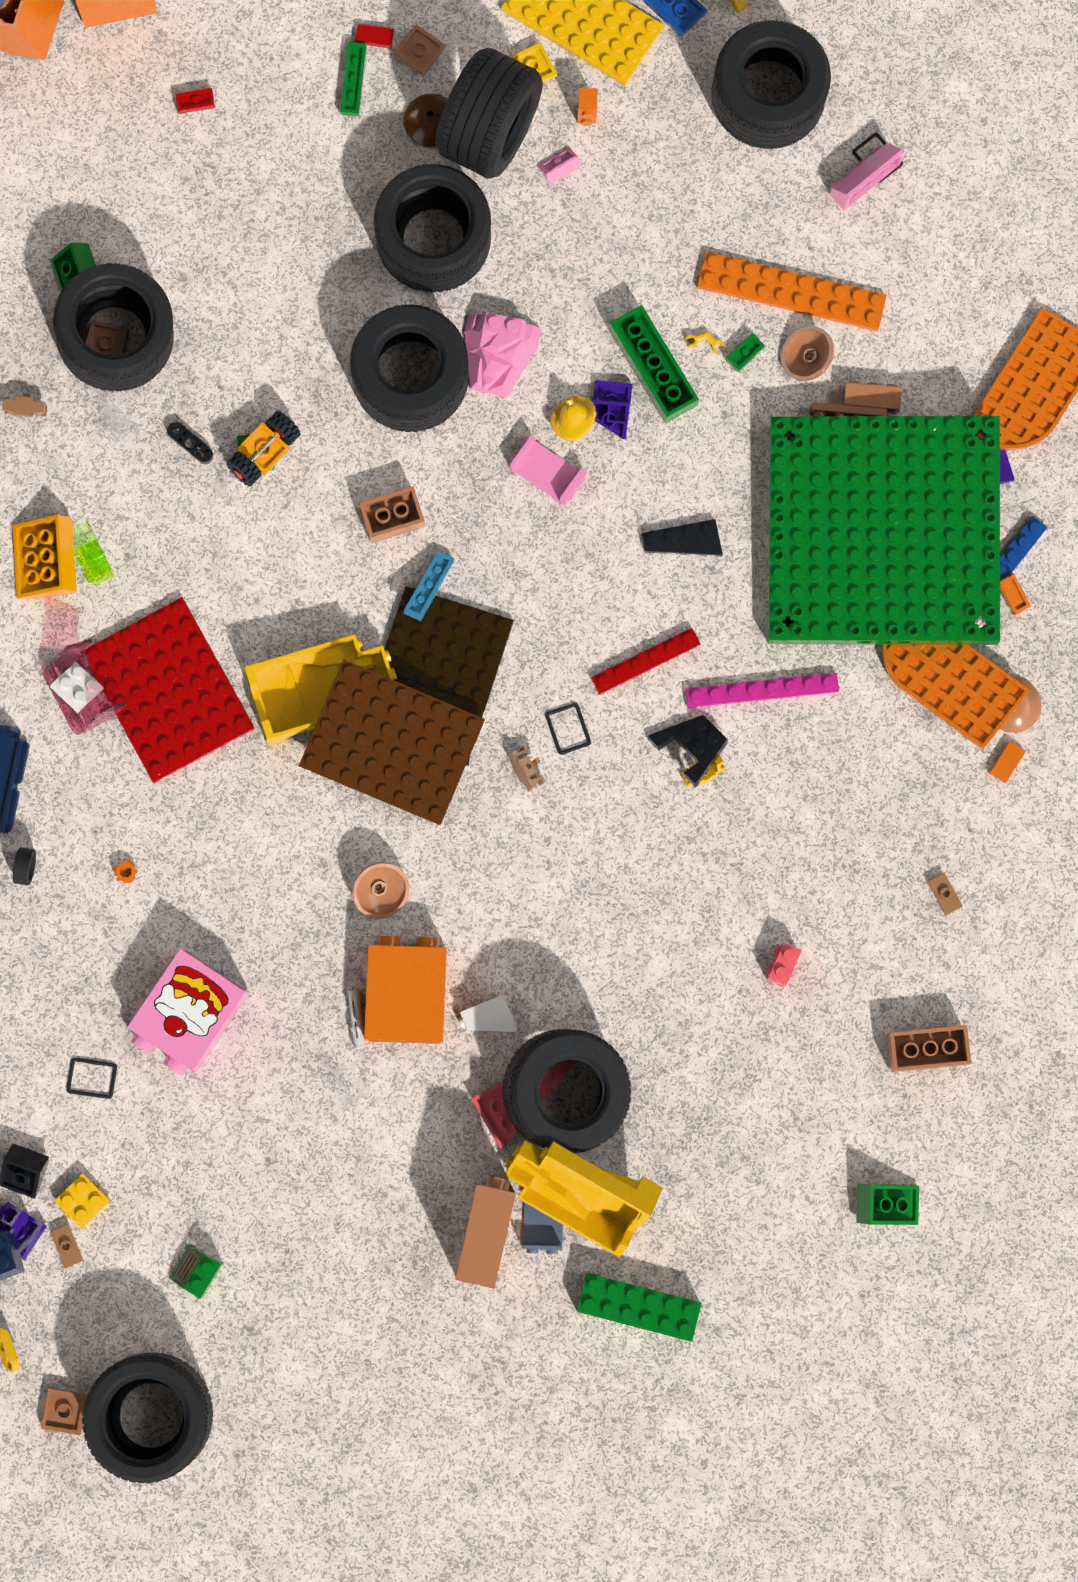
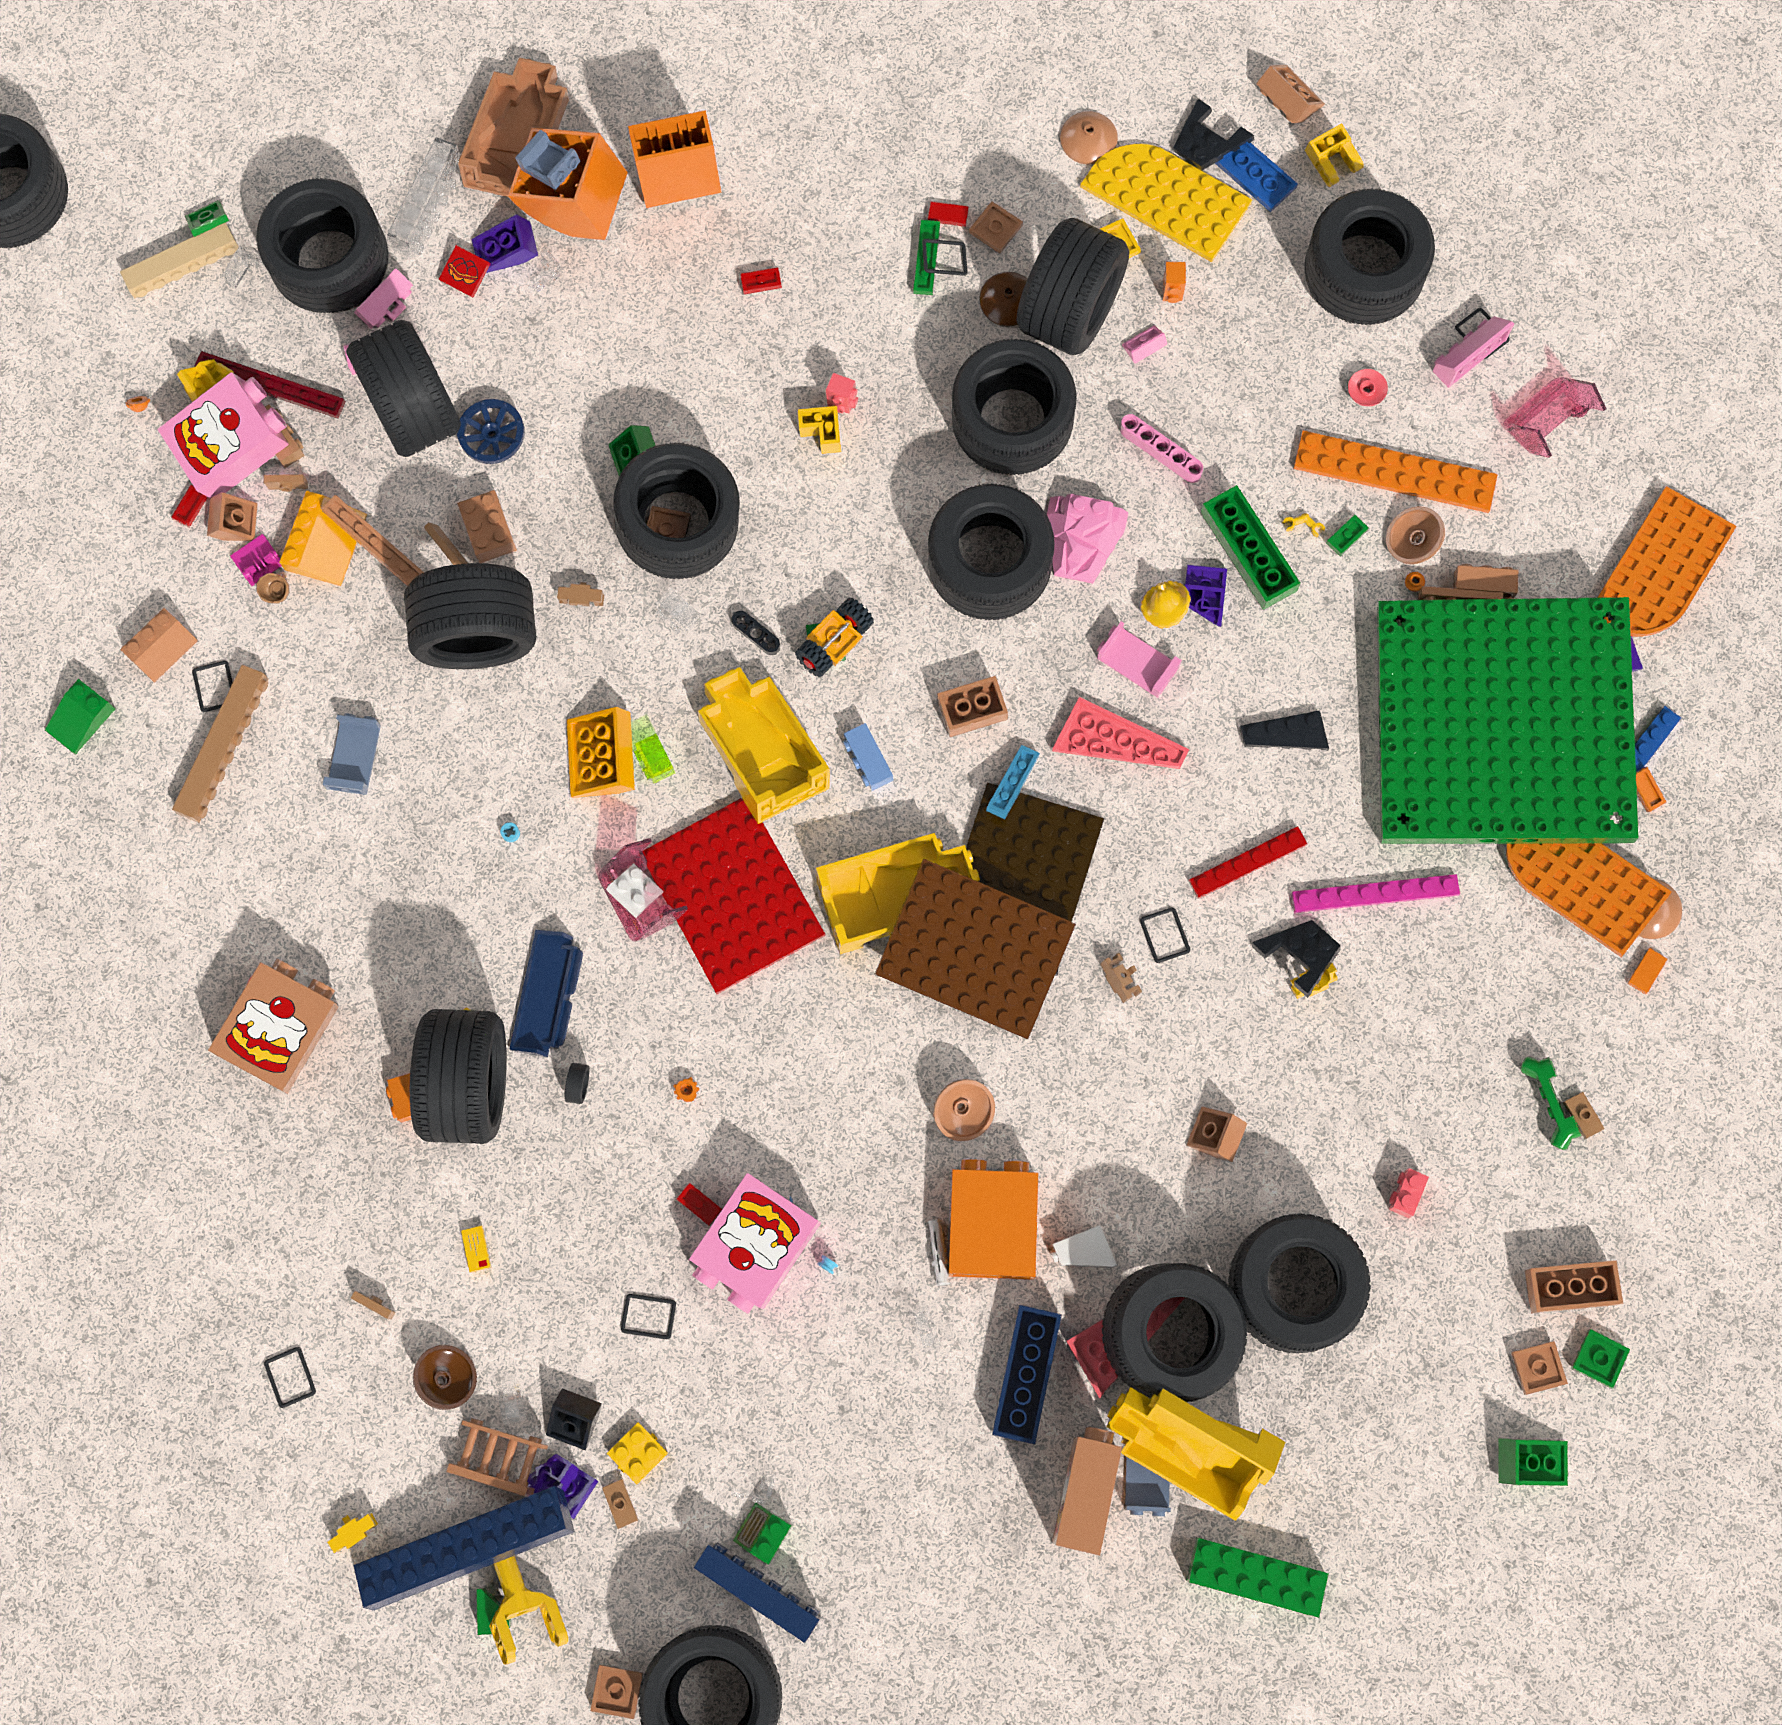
camera: 10 degrees right, 5 degrees down
(137, 976) = (699, 1204): none -> red plate
(190, 1323) = (758, 1592): none -> dark blue brick
(195, 549) = (762, 744): none -> yellow panel
(253, 241) = (822, 423): none -> yellow brick
(255, 1031) = (827, 1264): none -> medium azure bush
(271, 213) = (841, 393): none -> coral brick
(294, 562) = (867, 757): none -> medium blue brick
(370, 93) = (924, 241): none -> black piece
(435, 1129) = (1026, 1374): none -> dark blue brick
(517, 542) = (1105, 735): none -> coral wing
(569, 260) = (1165, 457): none -> bright pink beam
(611, 911) = (1217, 1133): none -> nougat slope
(681, 1091) = (1265, 1318): none -> black tyre
(769, 202) = (1367, 379): none -> coral dish
(806, 402) = (1412, 586): none -> orange plate
(896, 1121) = (1539, 1368): none -> nougat plate
(928, 905) = (1566, 1127): none -> green plate
(935, 233) = (1548, 409): none -> clear pink windscreen
(951, 1112) = (1600, 1358): none -> green plate

